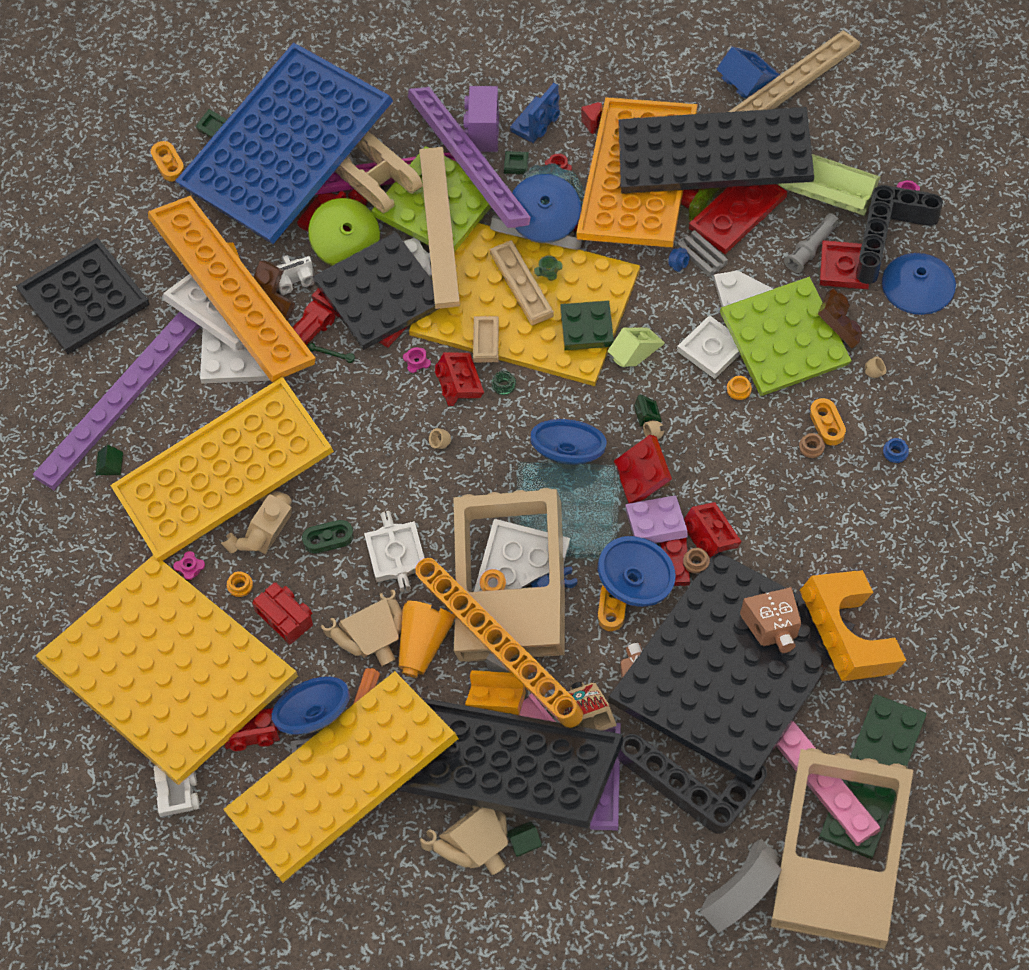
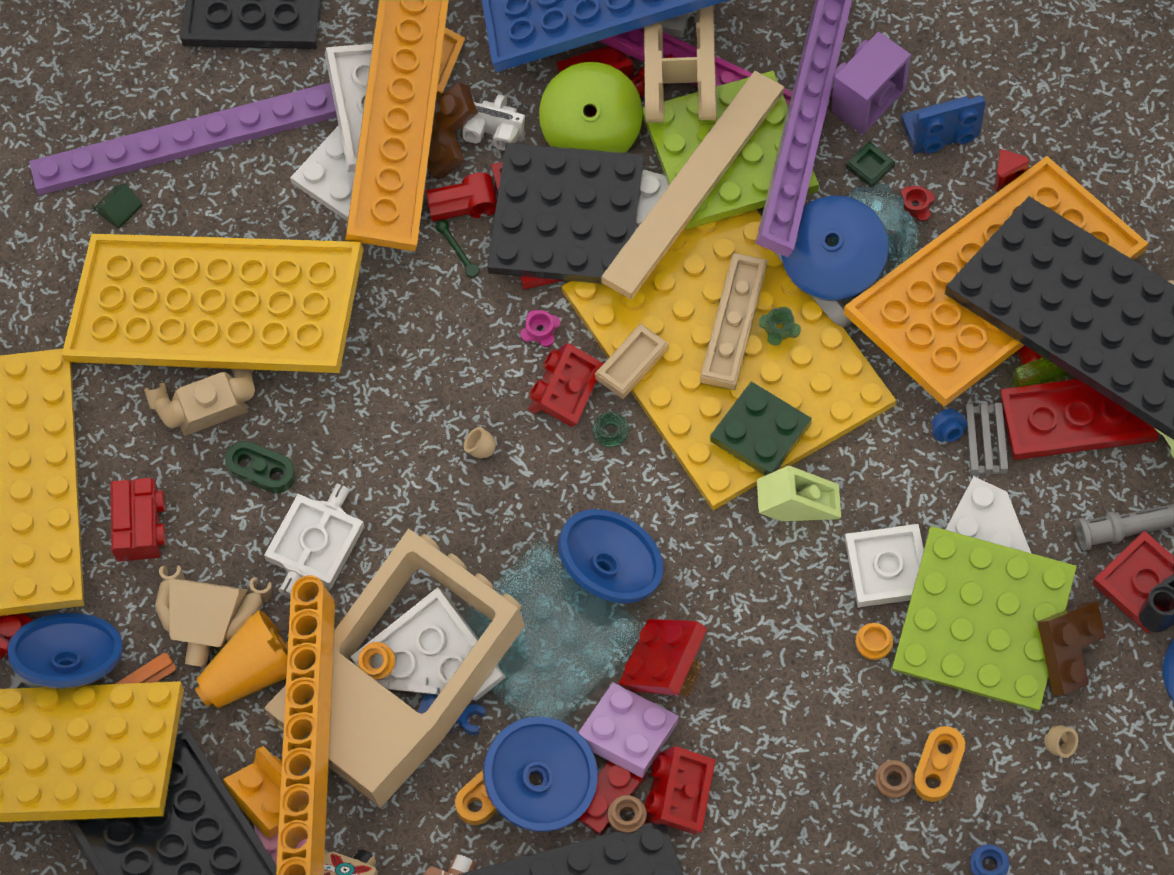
camera: 40 degrees right, 5 degrees up
(189, 572) = (93, 398): dark pink plate -> none
(236, 578) = (124, 441): light orange plate -> none
(646, 410) = (742, 588): dark green slope -> none
(653, 428) = (724, 616): tan hinge -> none

